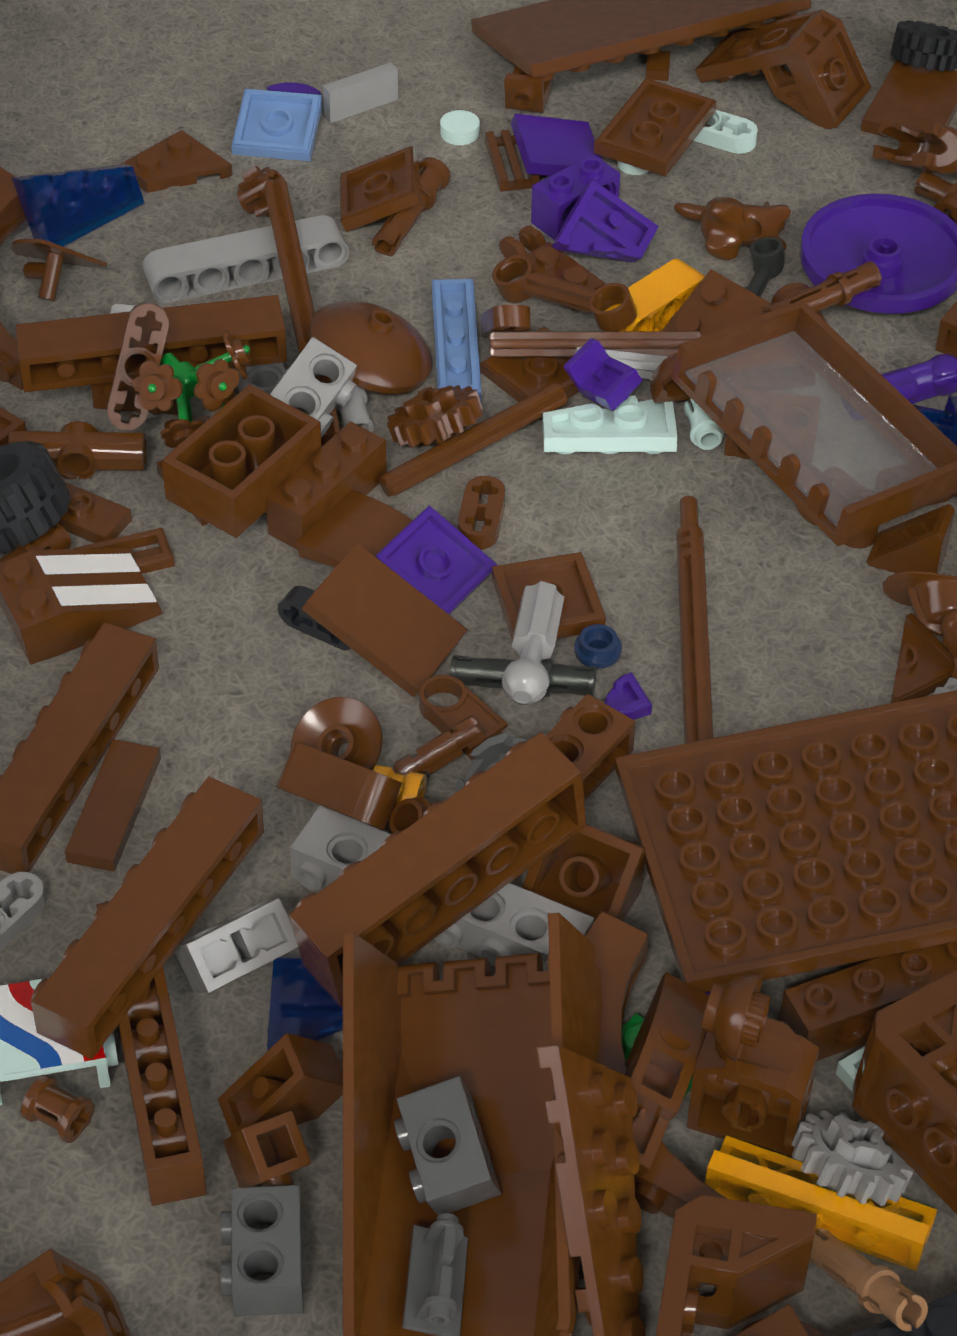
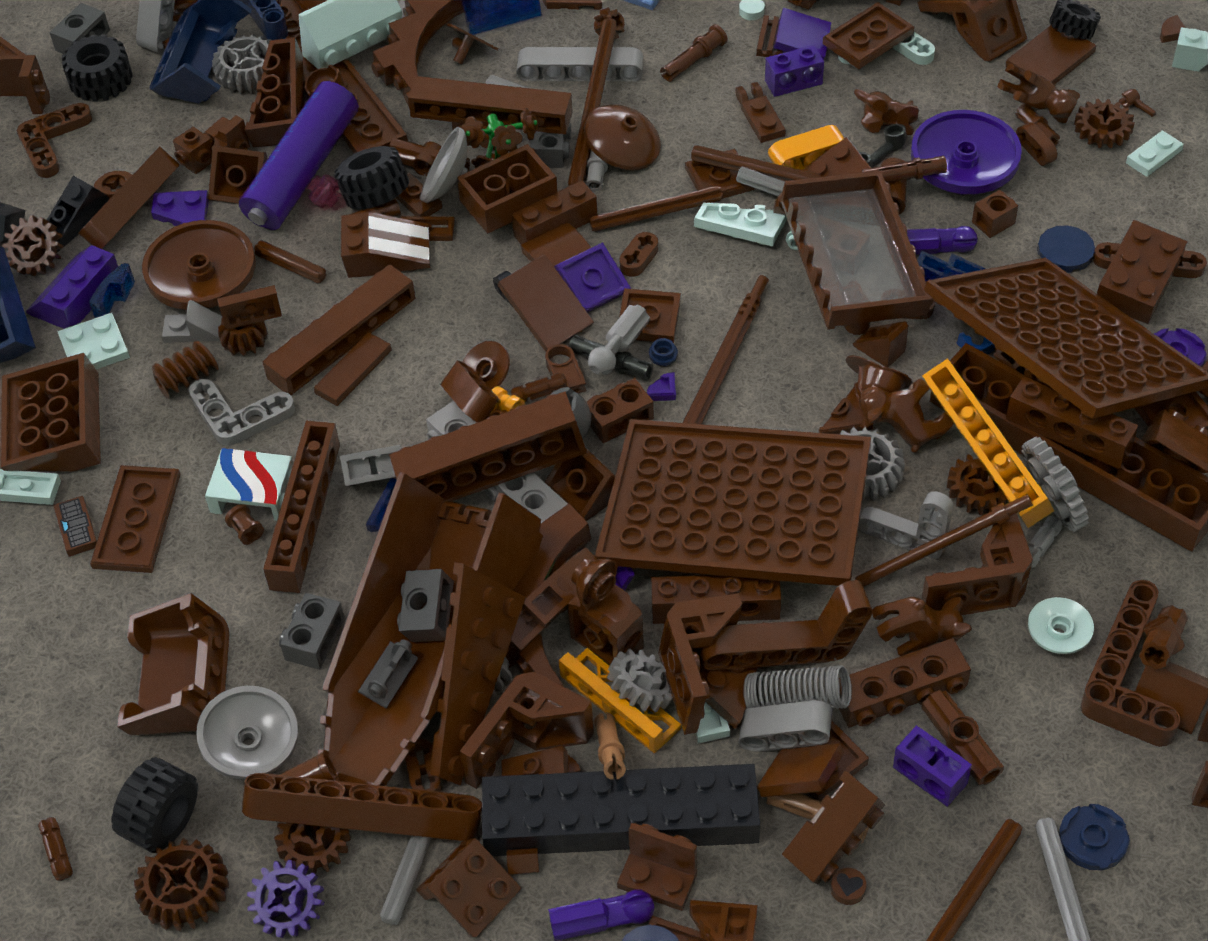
camera: 25 degrees right, 5 degrees up
(128, 448) = (446, 166): none -> light grey dish
(135, 330) = (474, 96): reddish brown beam -> none
(147, 917) = (325, 434): reddish brown brick -> none
(267, 1152) = (334, 580): reddish brown brick -> none
(290, 1076) = (353, 549): reddish brown slope -> none
(303, 390) = (561, 153): light grey brick -> none
(379, 188) = (679, 37): reddish brown tile -> none
(434, 415) = (637, 188): reddish brown gear -> none
(455, 334) = (679, 144): medium blue tile -> none
(505, 319) = (707, 139): reddish brown beam -> none
(565, 293) = (734, 116): reddish brown piece -> none
(601, 376) = (744, 187): dark purple bracket -> none
(605, 227) = (800, 94): dark purple wing -> none

